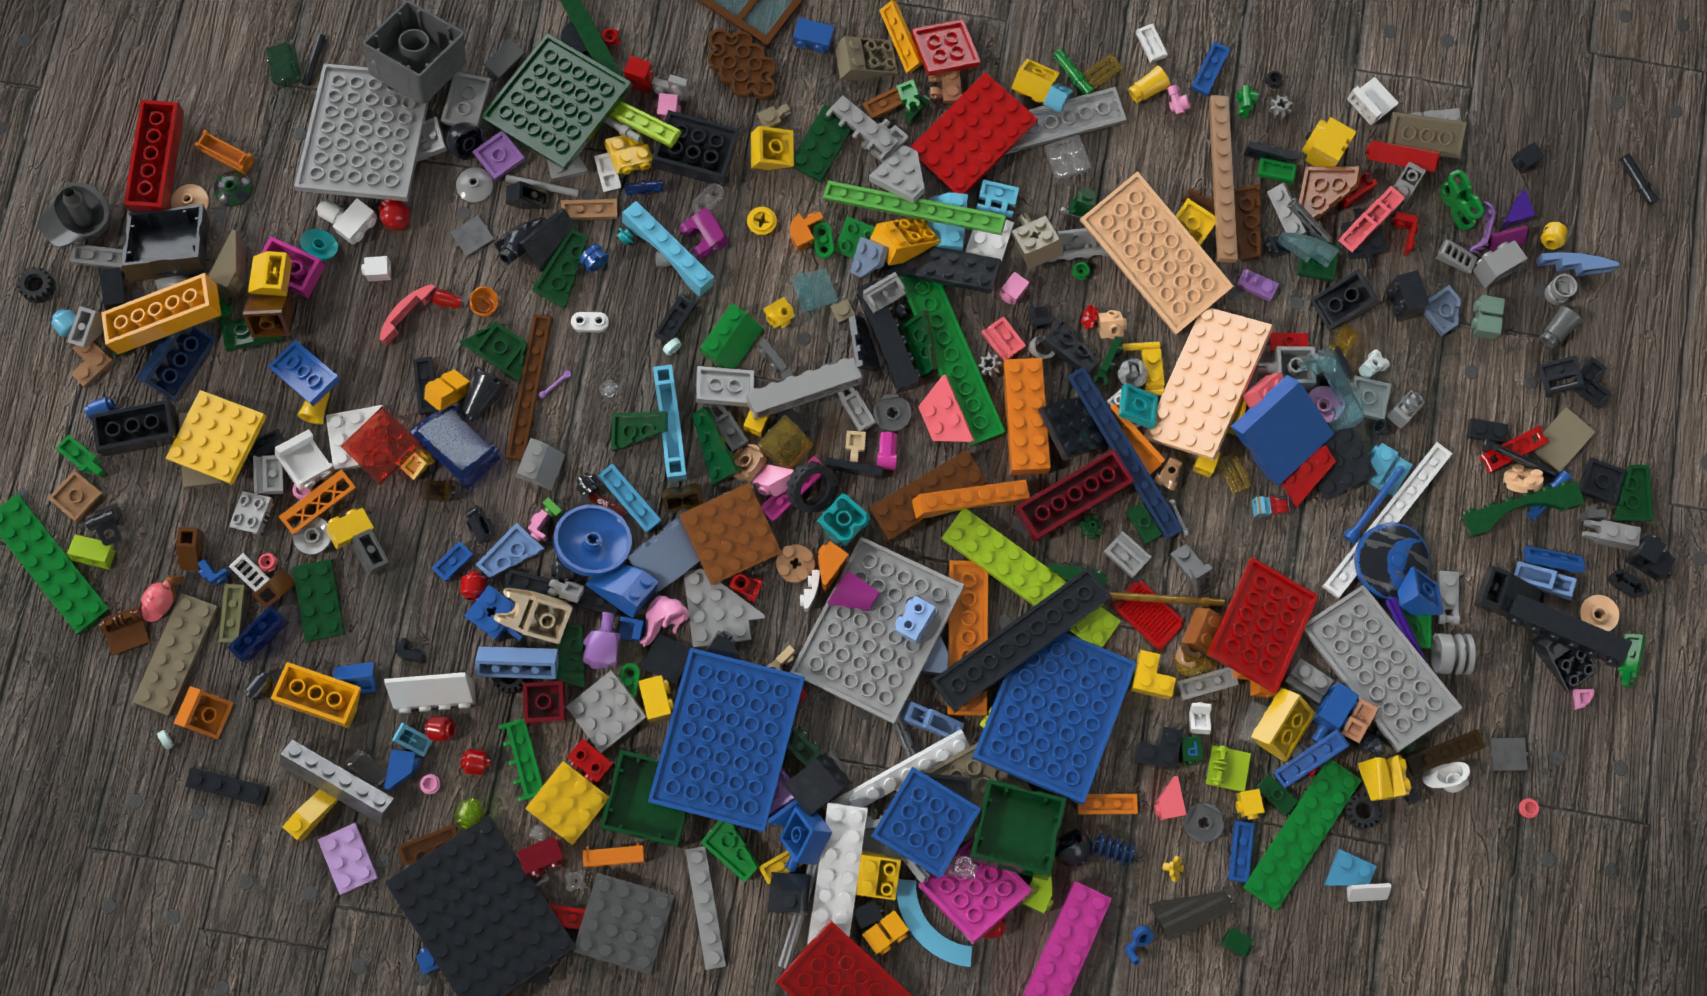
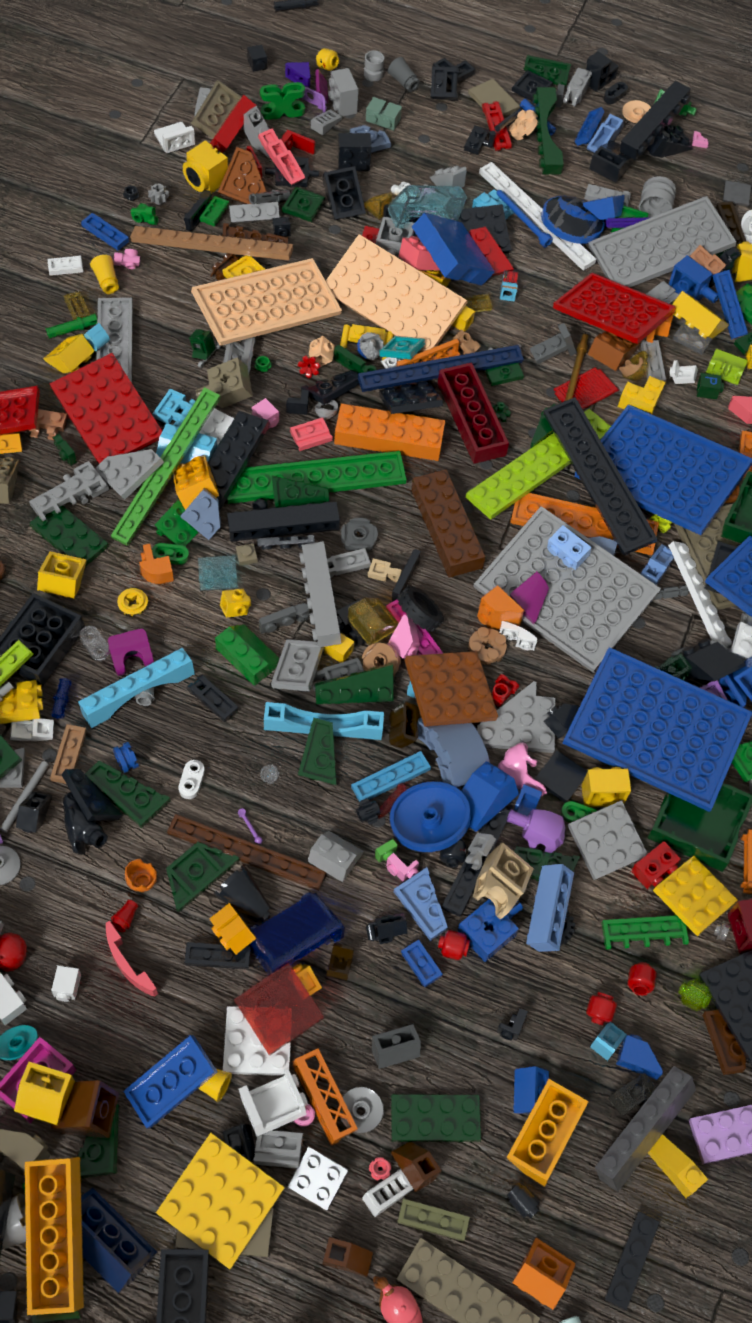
camera: 80 degrees left, 15 degrees down
(209, 573) = (379, 1240): blue bracket -> none
(258, 634) = (466, 1189): clear blue brick -> none
(343, 529) = (364, 1063): yellow brick -> none
(430, 784) = (657, 1031): bright pink plate -> none
(431, 692) = (564, 1005): white slope -> none
(472, 236) = (58, 878): flat silver piece -> none
(544, 703) = (592, 895): dark red brick -> none
(625, 236) = (109, 725): teal plate -> none
(672, 346) = (242, 705): light aqua tile -> none
(771, 117) = (26, 571): dark tan plate -> none
(785, 657) = (579, 673): tan plate -> none
(843, 520) = (457, 591): teal piece -> none
(883, 104) = (45, 467): dark orange plate -> none
(884, 292) = (243, 507): light grey hinge -> none
(886, 456) = (401, 548): dark pink piece -> none
(909, 94) = (48, 446): plate -> none
(944, 415) = (372, 493): coral wing -> none
(947, 501) = (463, 484): orange arch -> none
(991, 370) = (335, 442): light grey gear -> none
(1067, 157) = (152, 349): clear plate -> none
(1127, 554) = (531, 390): light grey plate -> none
(1162, 755) = (707, 402): black brick -> none
(1257, 284) = (312, 248): medium lavender plate -> none
(1308, 247) = (294, 201): clear light blue slope -> none
(1582, 263) = (355, 50): medium blue slope -> none

